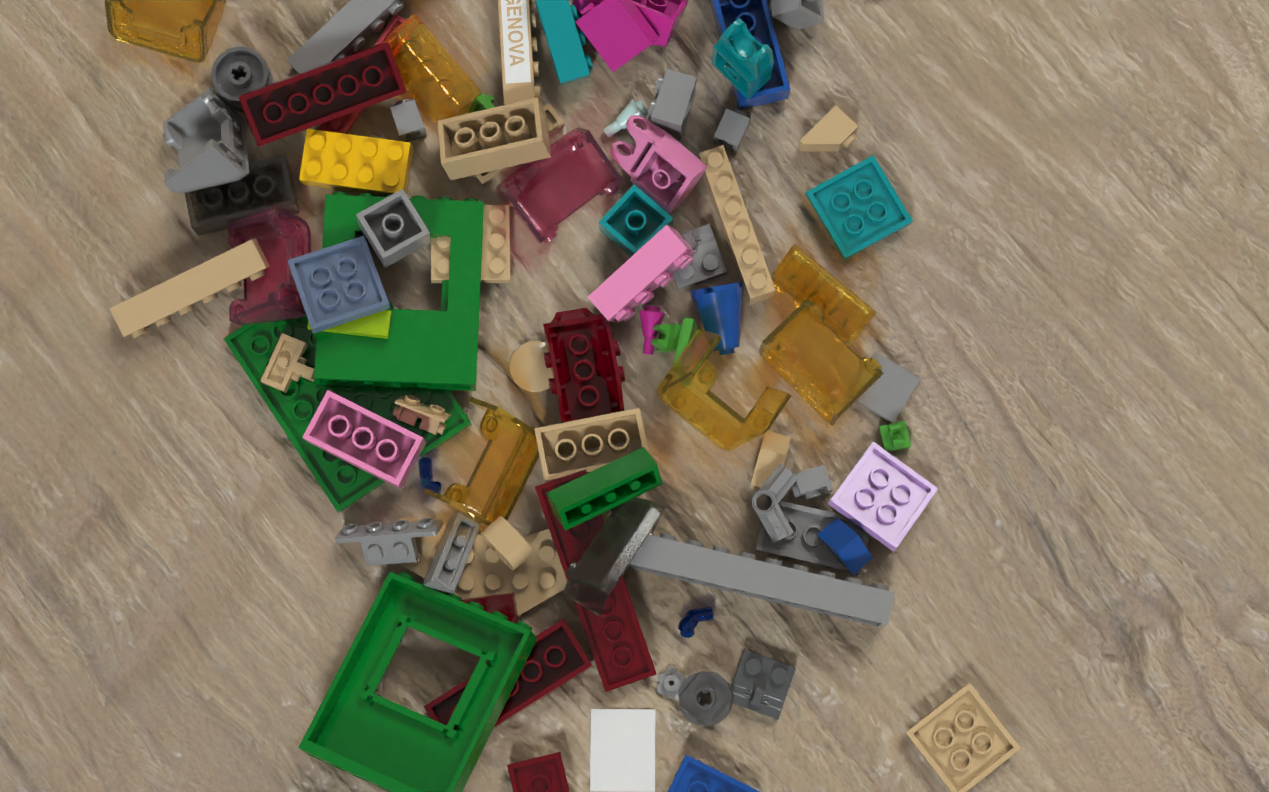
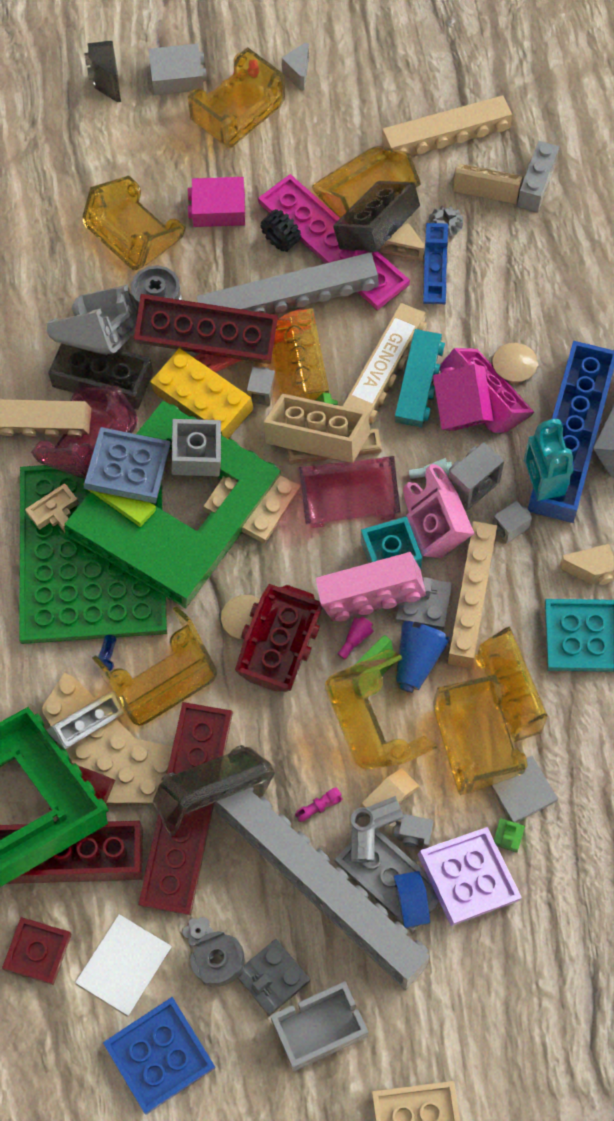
camera: 30 degrees right, 15 degrees down
(364, 439) = (74, 594): bright pink brick -> none
(389, 542) = (42, 685): light grey bracket -> none
(412, 409) = (137, 607): tan hinge -> none
(506, 543) = (133, 736): tan beam -> none
(589, 442) = (256, 699): tan slope -> none
(604, 488) = (236, 730): green brick -> none
(667, 337) = (365, 645): bright green tile -> none
(692, 618) = (247, 887): clear blue arm -> none
(711, 506) = (329, 799): none -> dark pink piece
(830, 705) = (320, 1027): none -> light grey piece

